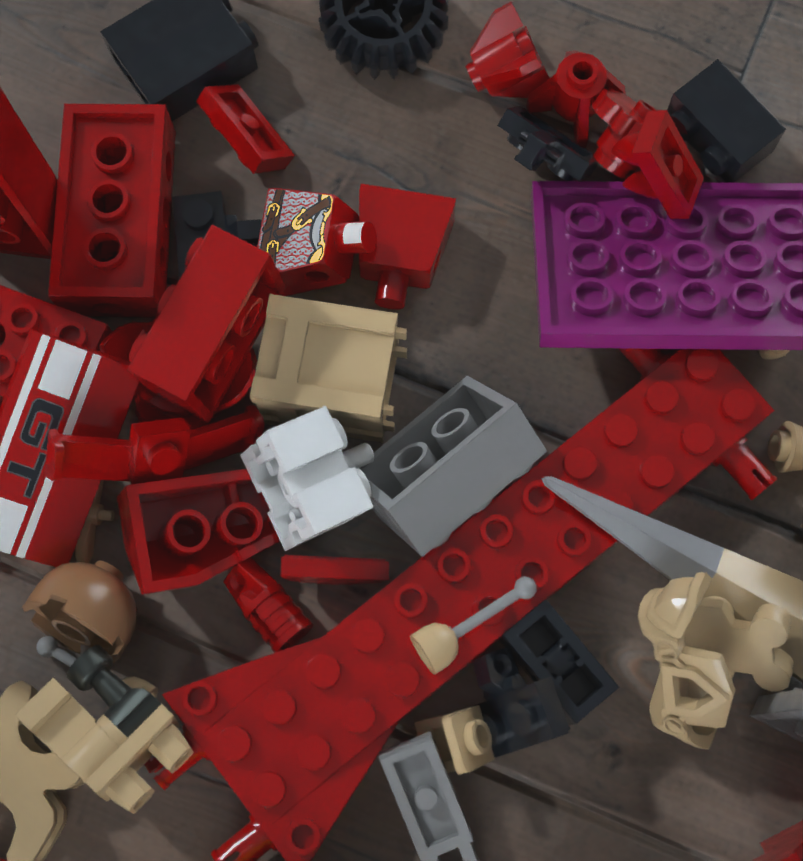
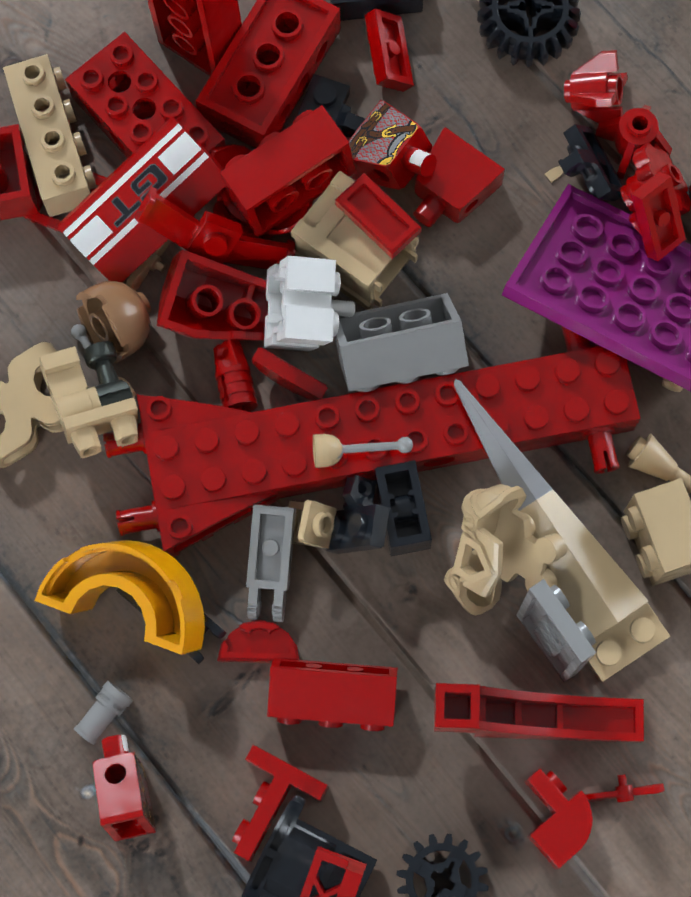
camera: 30 degrees right, 0 degrees up
(346, 326) = (378, 216): none -> red tile
(507, 177) = (554, 173): none -> tan piece

